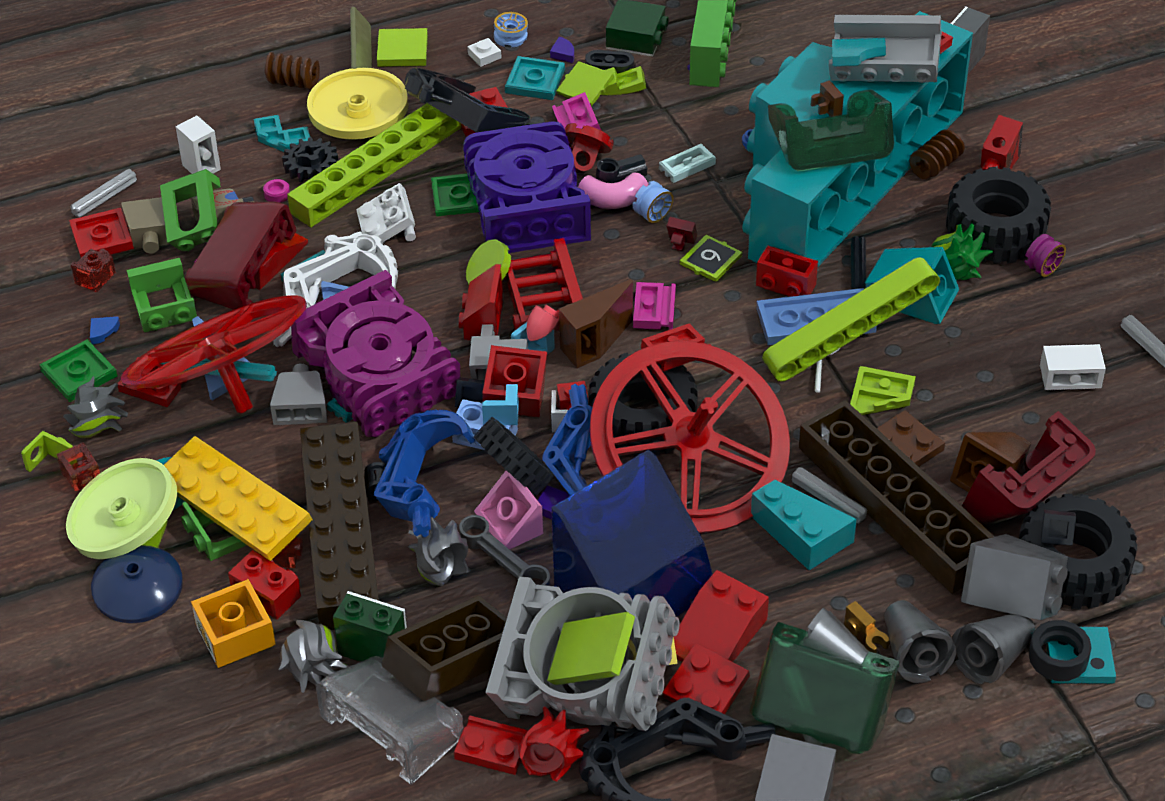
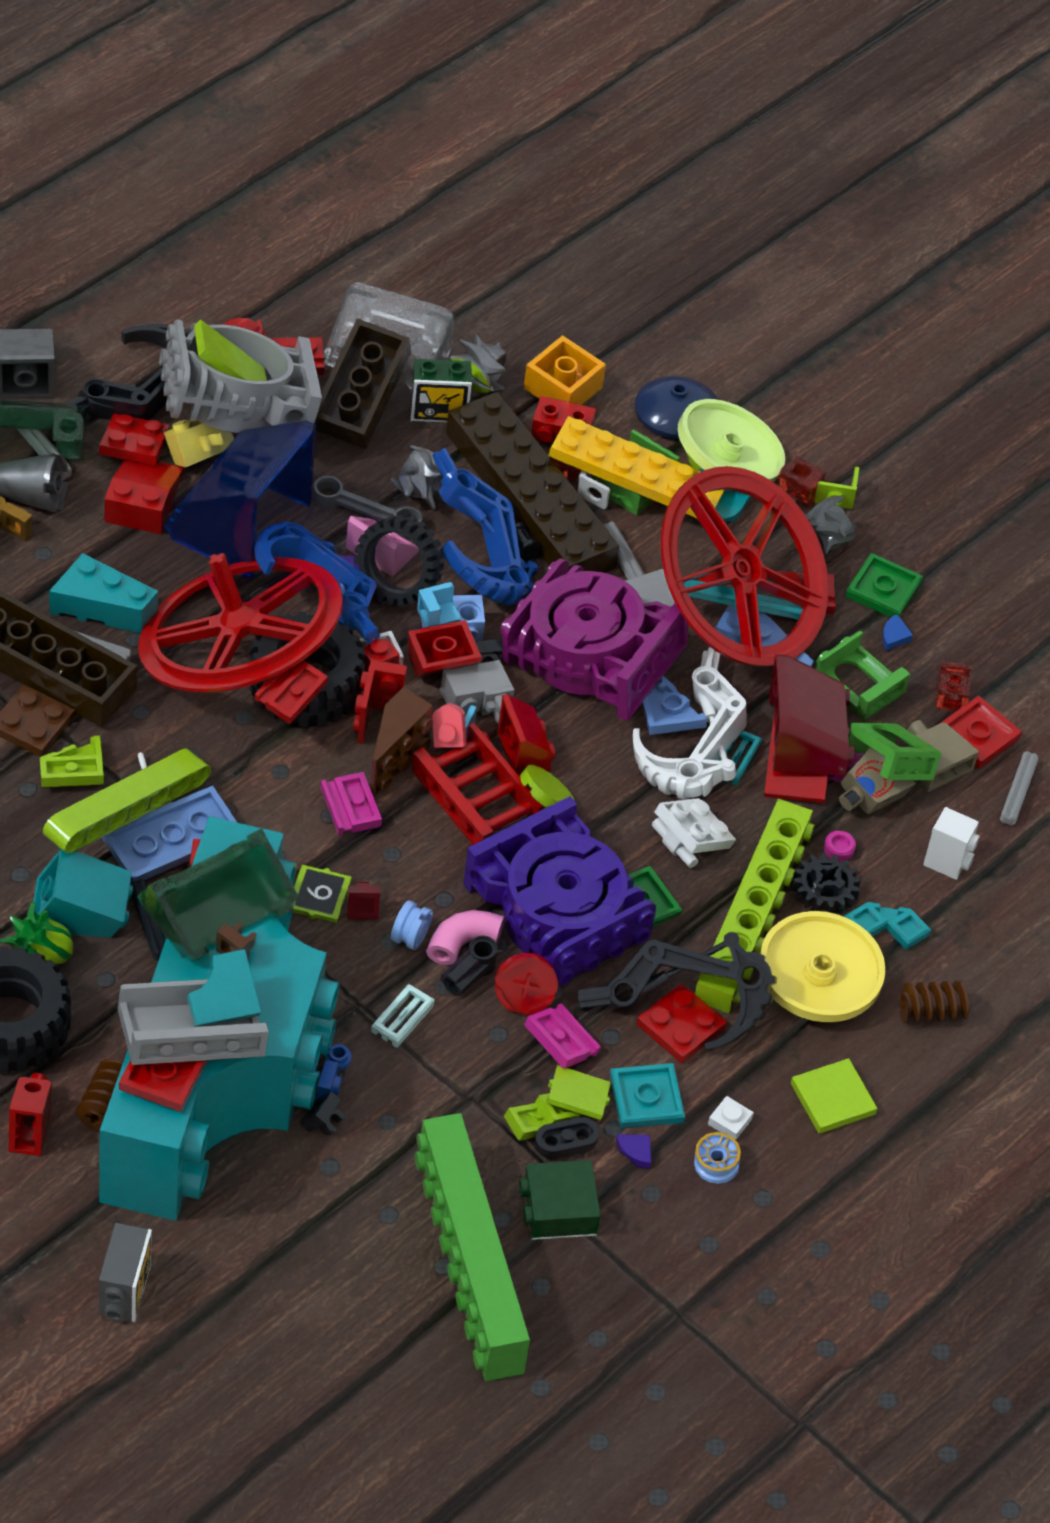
camera: 150 degrees right, 5 degrees up
(290, 451) = (625, 556): none -> light grey axle
(360, 40) = (880, 1071): olive slope -> none
(583, 361) = (379, 687): none -> red bracket

